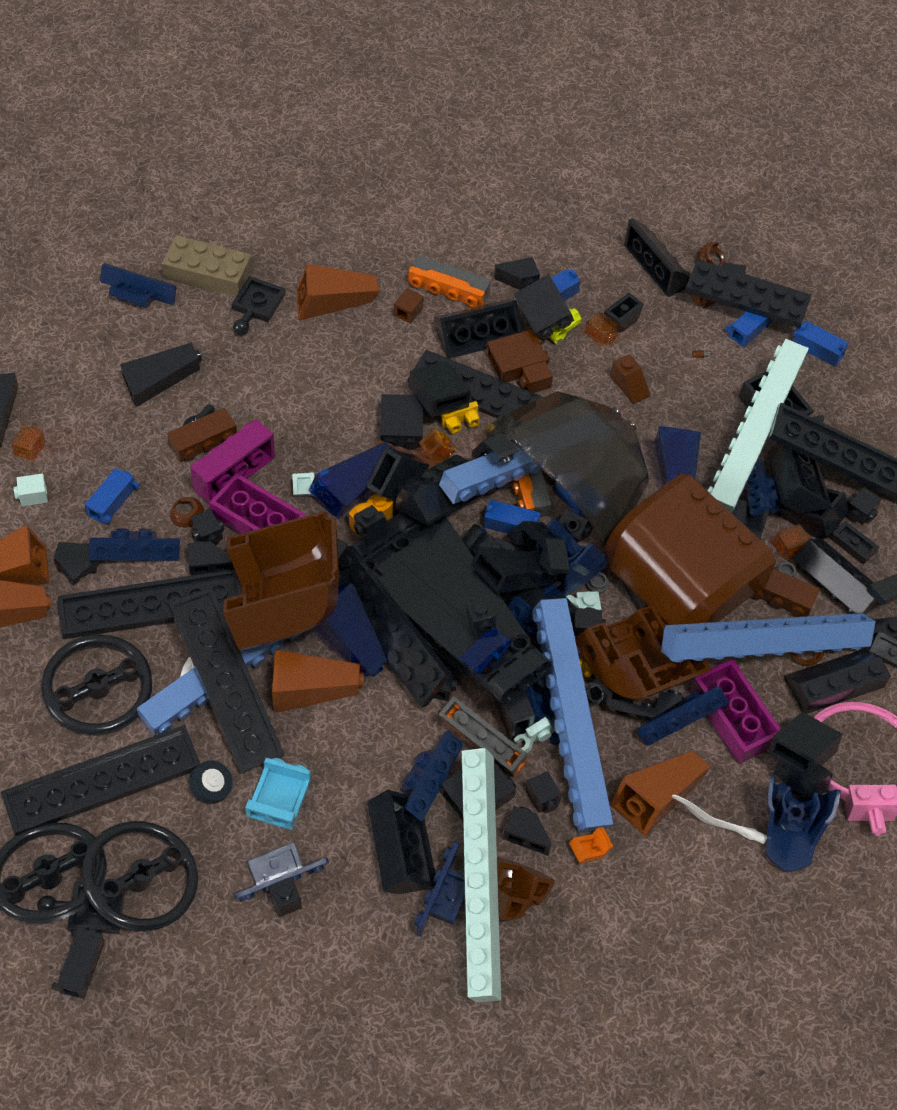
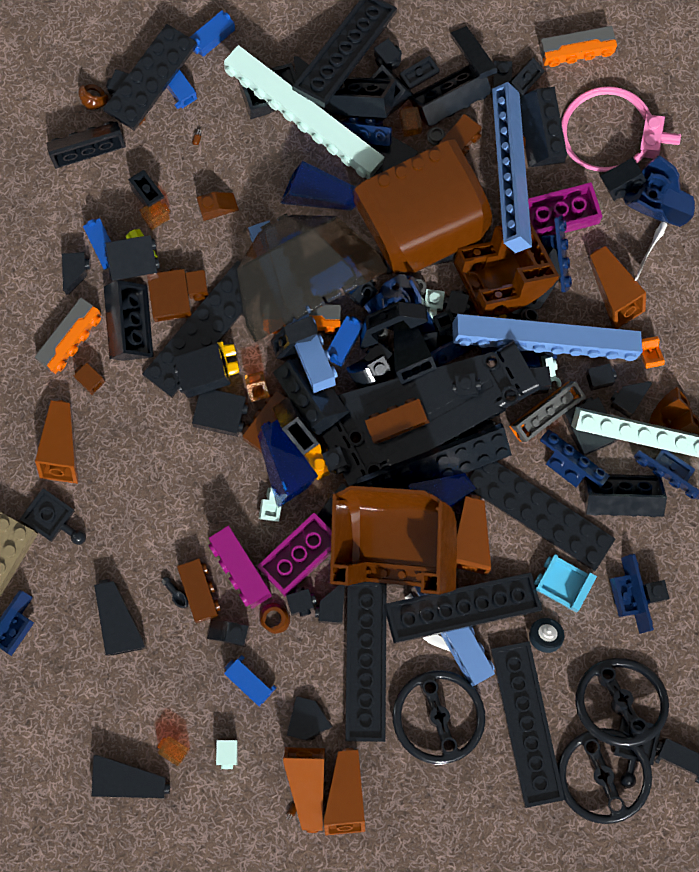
camera: 75 degrees left, 20 degrees up
(134, 546) = (305, 668): dark blue bracket -> none
(161, 473) = (228, 632): none -> black slope
(358, 759) = (542, 514): none -> black plate
(426, 567) = (397, 420): none -> reddish brown brick
(484, 649) = (497, 389): clear blue slope -> none
(805, 744) = (605, 169): black brick -> none

